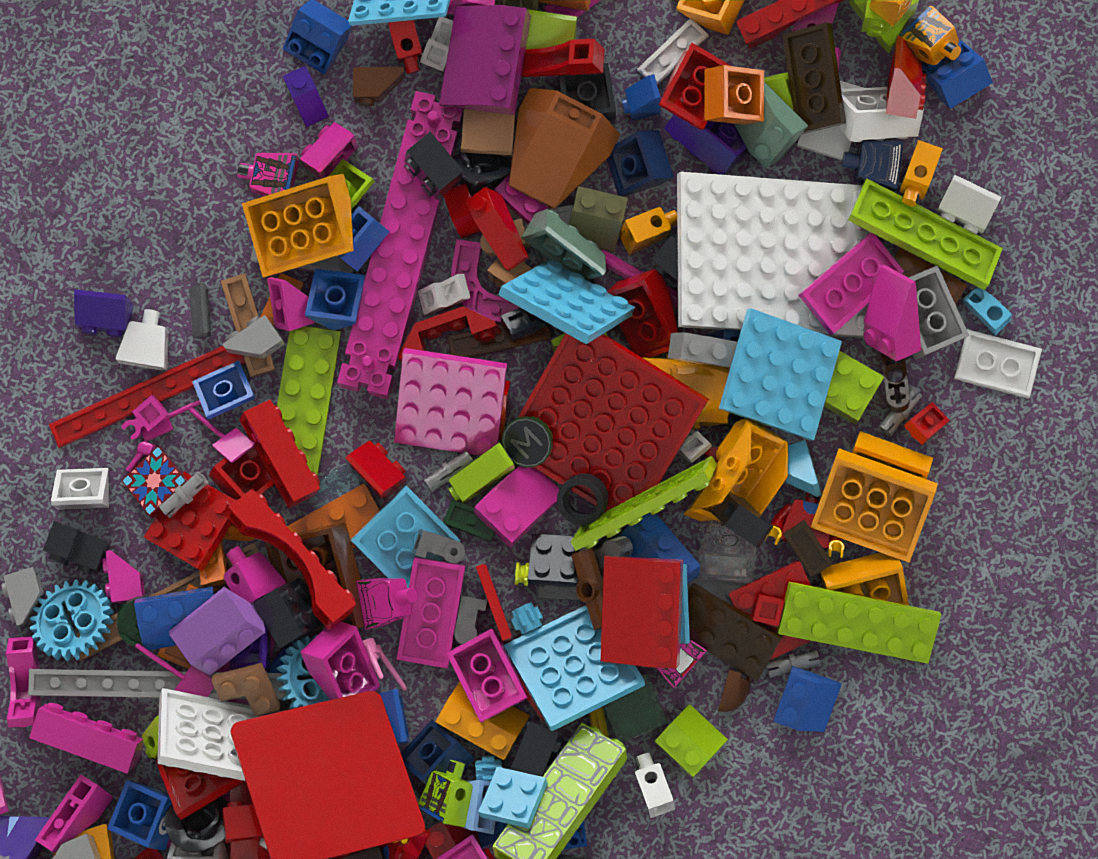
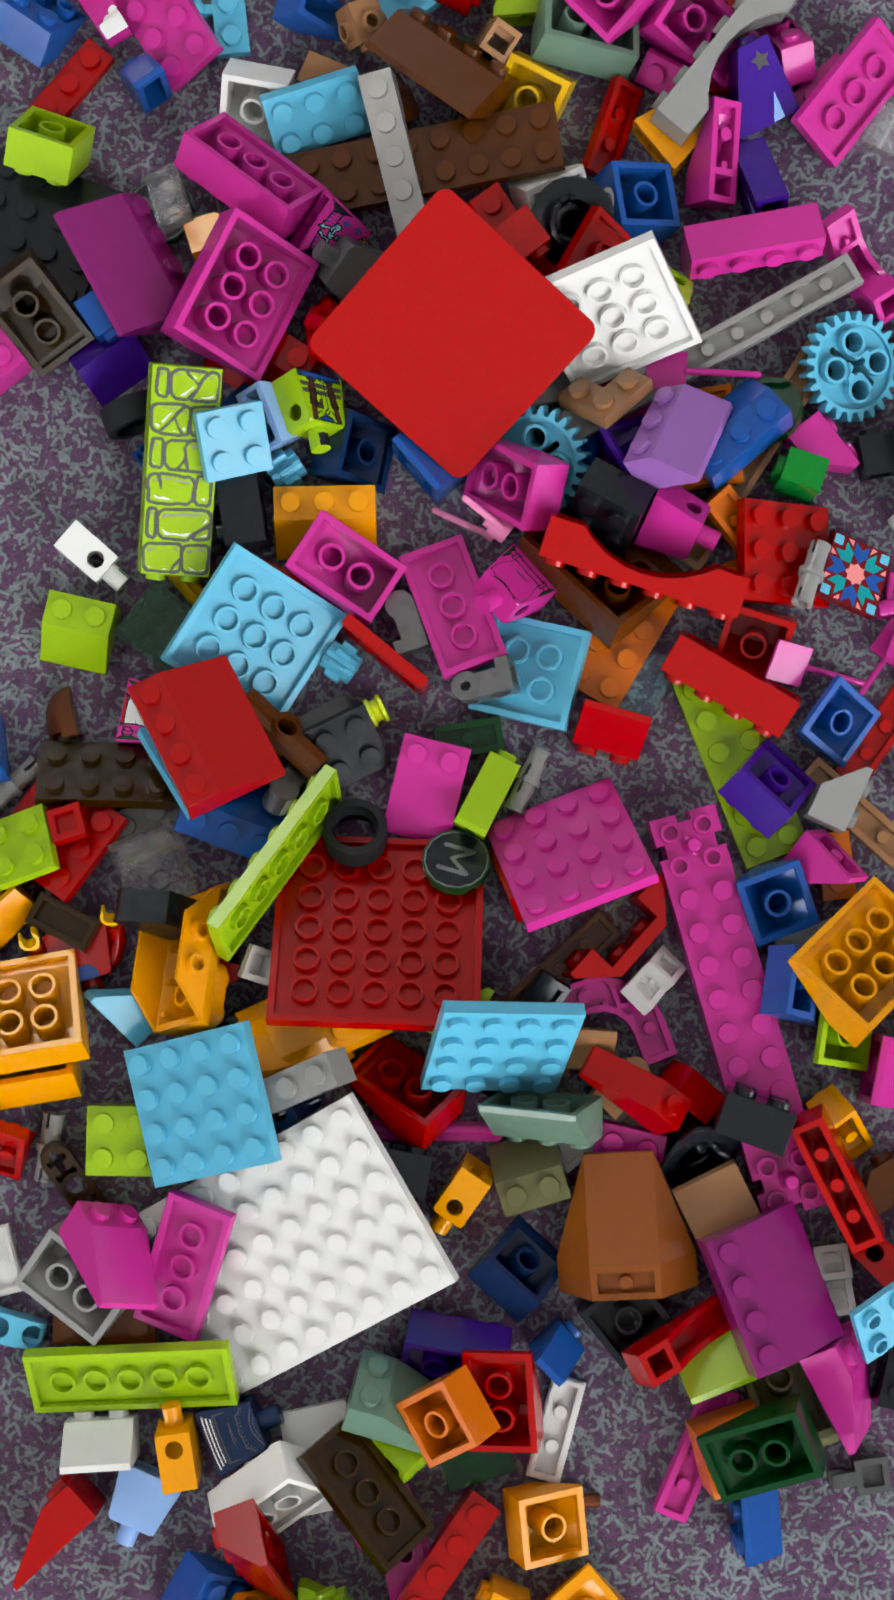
camera: 140 degrees right, 5 degrees up
(54, 780) = (759, 178): none -> dark purple slope
(151, 566) = (798, 475): none -> green brick
(296, 372) = (767, 788): none -> dark purple slope
(379, 137) = (845, 1120): none -> light orange slope
(402, 101) = (838, 1179): none -> red brick
(737, 55) = (475, 1468): none -> dark green tile
(964, 153) = (139, 1503): none -> light blue torso
(1016, 171) = (69, 1509): none -> red slope

